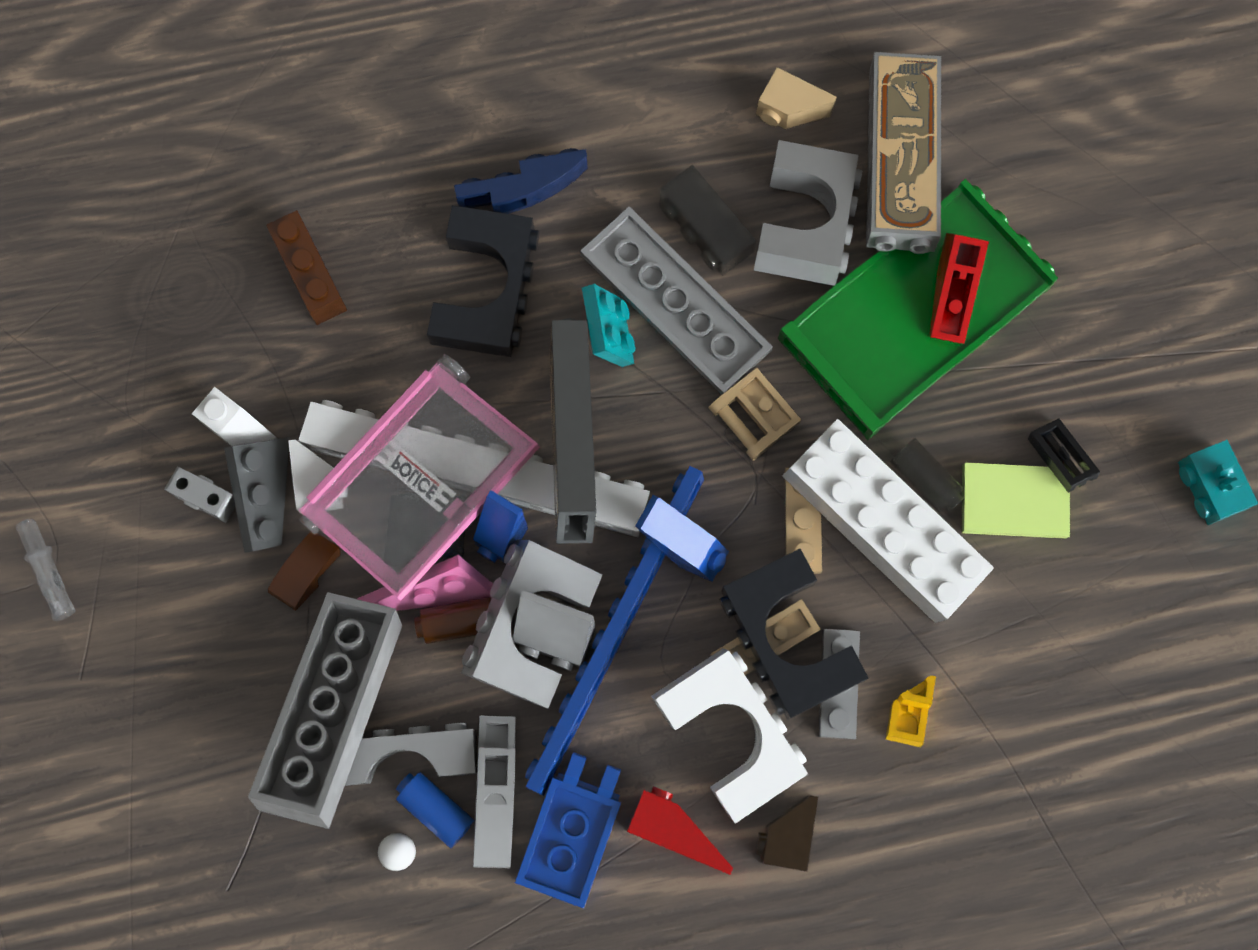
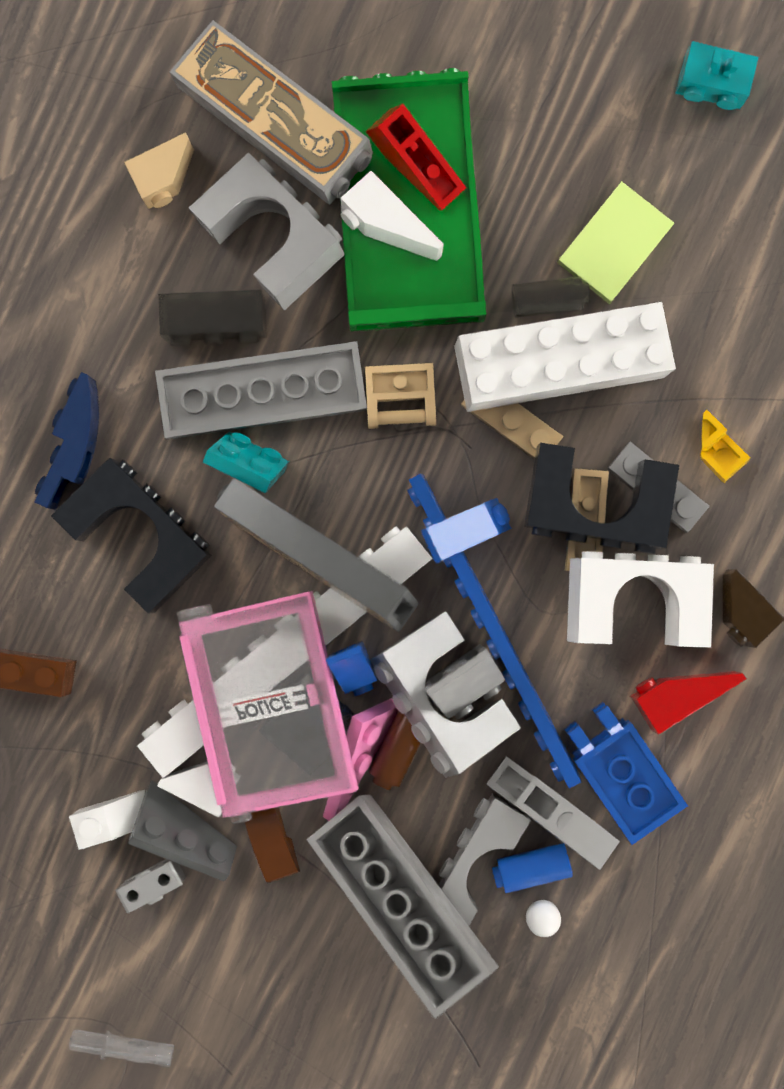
camera: 45 degrees left, 10 degrees up
(887, 293) = (386, 218): none -> white slope
(1059, 459) = (608, 183): black tile -> none

